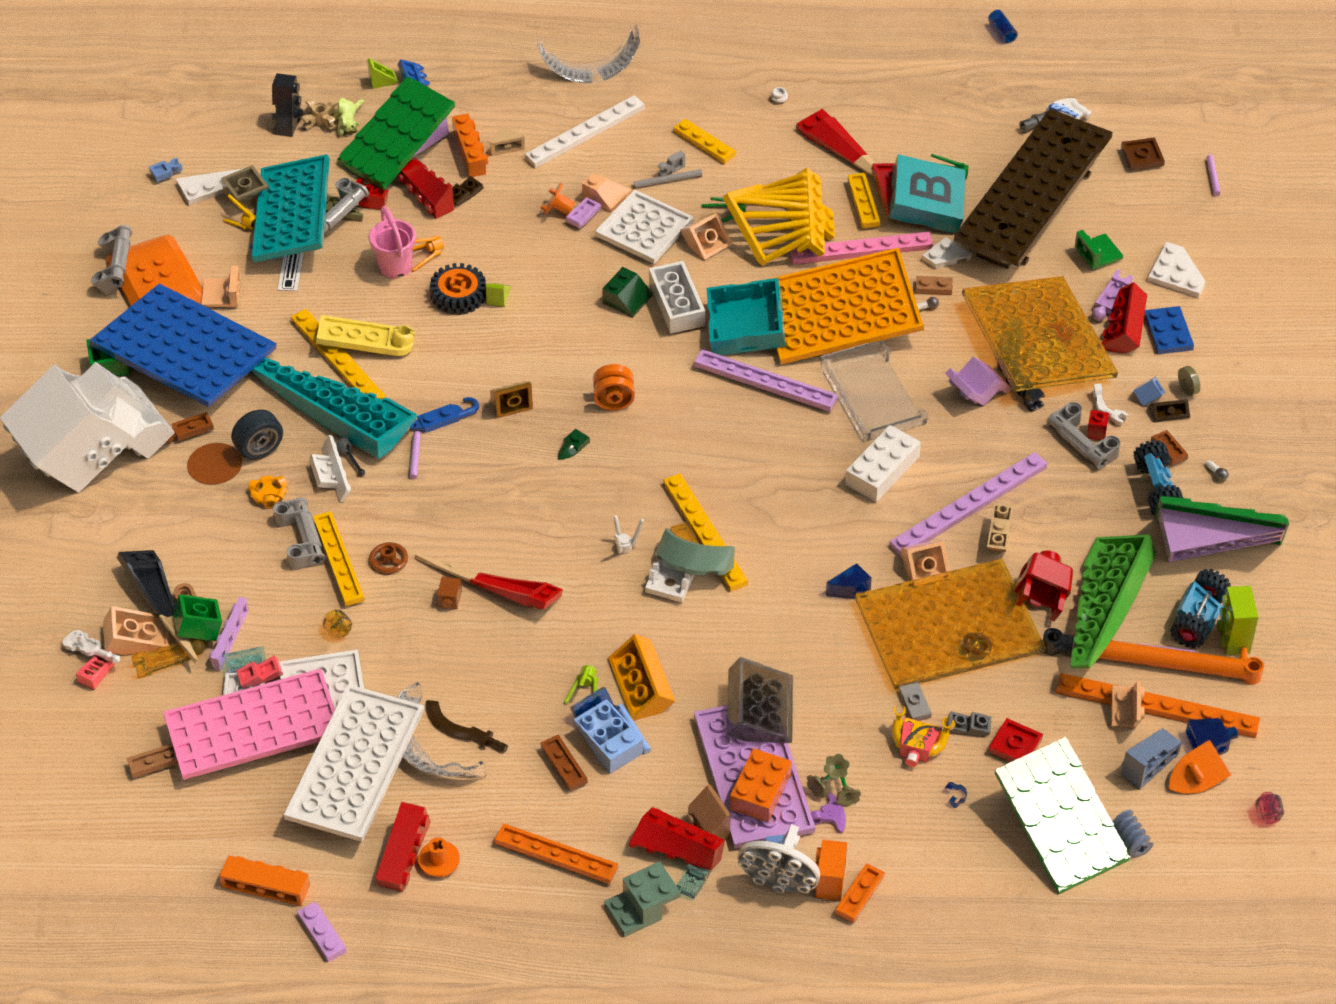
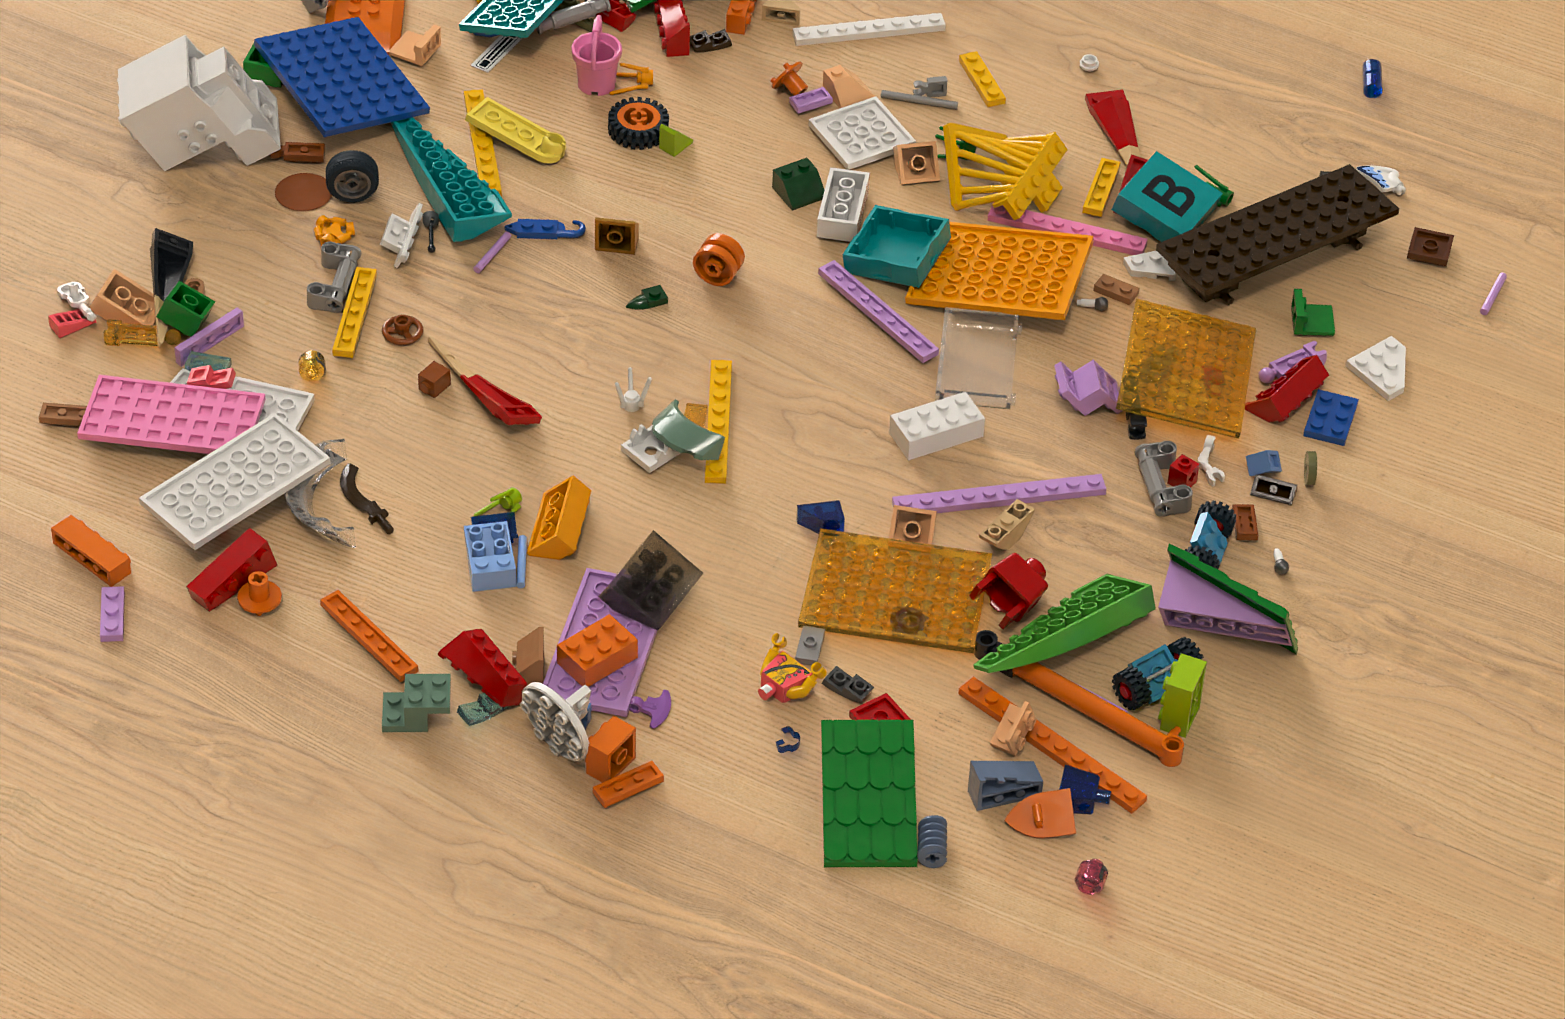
camera: 25 degrees right, 5 degrees down
(564, 762) = (433, 563): dark orange plate -> none
(835, 767) = (677, 664): olive plant -> none

